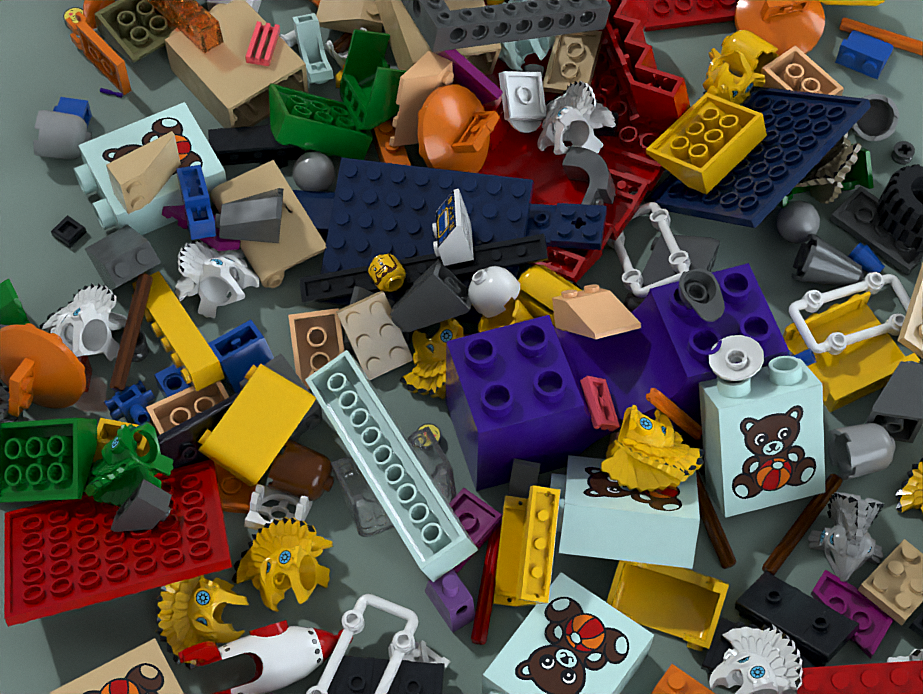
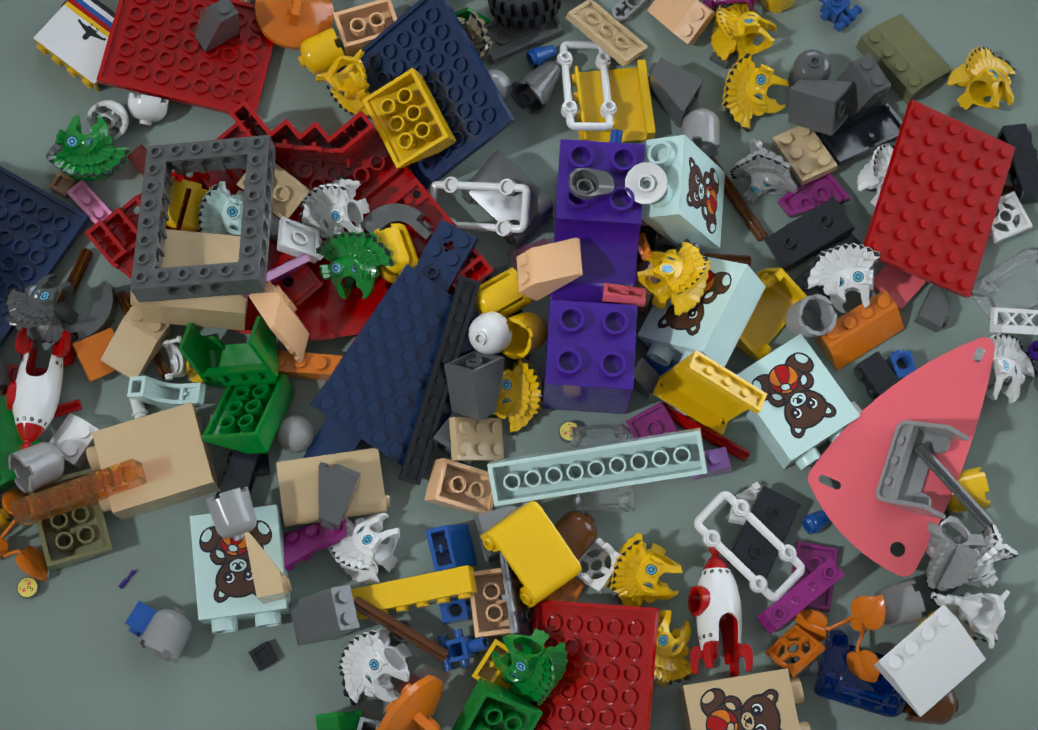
camera: 70 degrees left, 15 degrees up
(99, 53) = (87, 576): orange tile -> none
(142, 509) = (577, 664): dark grey slope -> none
(196, 126) = (233, 513): none -> light grey cylinder
(196, 202) = (301, 537): blue slope -> none
(266, 29) = (142, 420): coral tile -> none
(387, 272) = (437, 408): yellow head -> none
(453, 231) = (430, 343): white slope -> none
(454, 130) = (324, 304): orange bracket -> none
(523, 145) = (355, 259): none -> green piece
(552, 183) = (399, 241): none -> yellow cylinder
(681, 639) = (811, 317): none -> light grey cylinder

